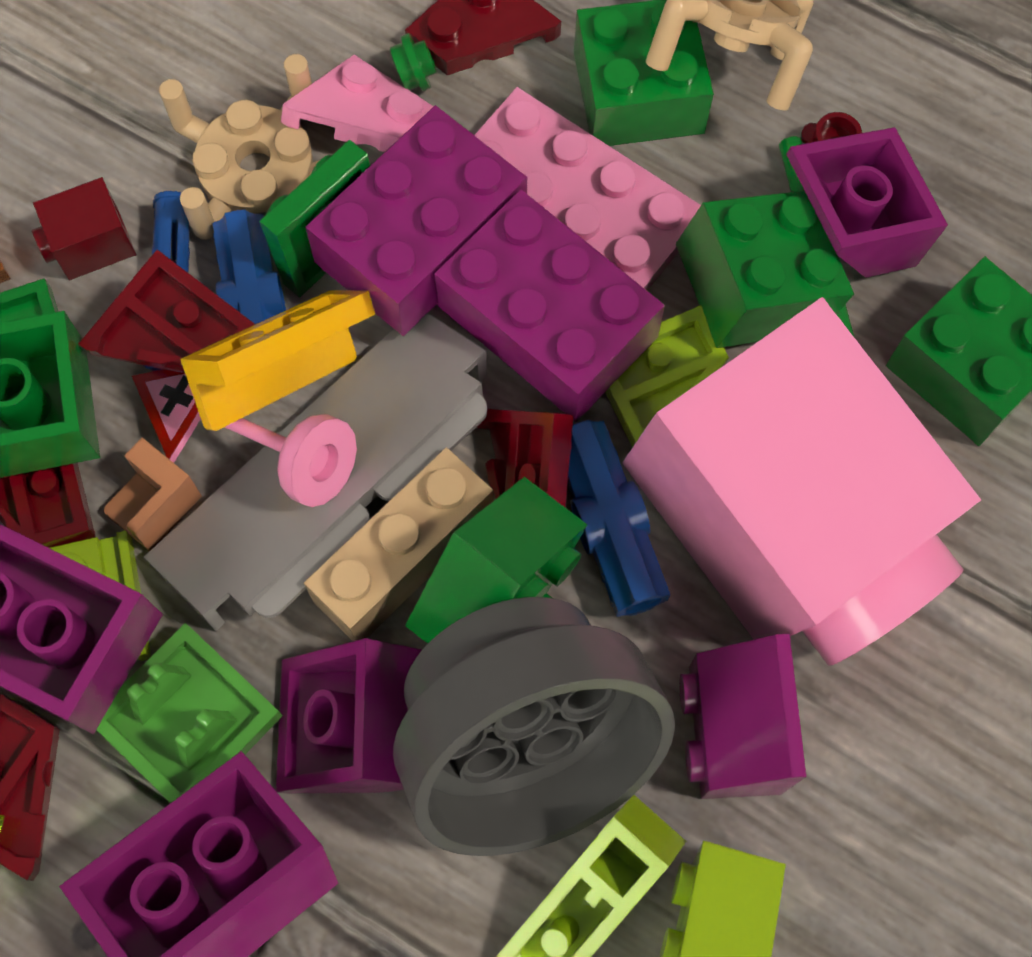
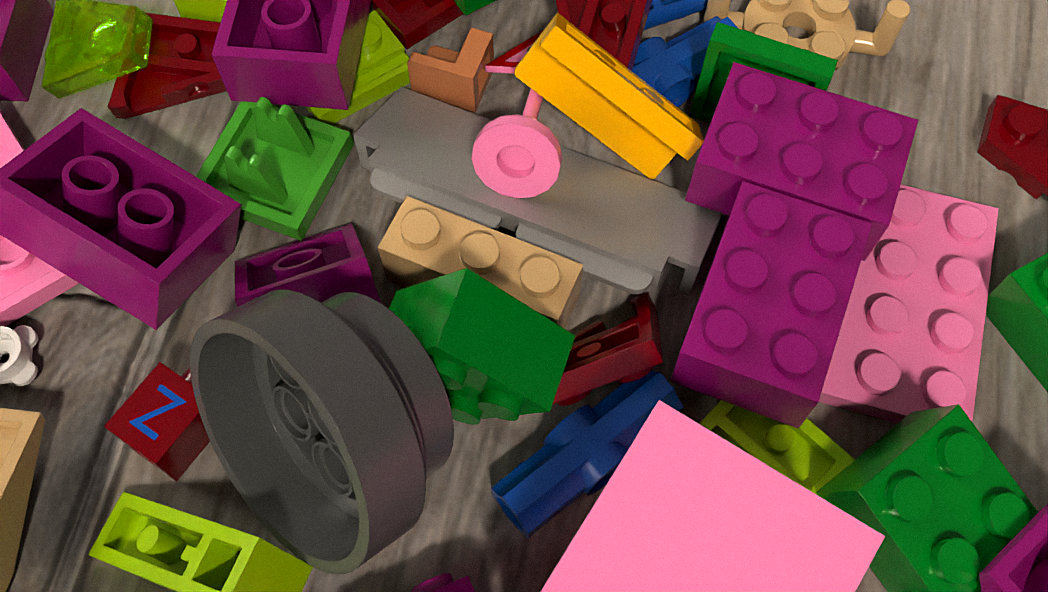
camera: 70 degrees right, 5 degrees down
(358, 104) = (897, 80): bright pink wing -> none
(413, 63) = (966, 112): green plate -> none
(436, 895) = (162, 421): none -> dark red brick

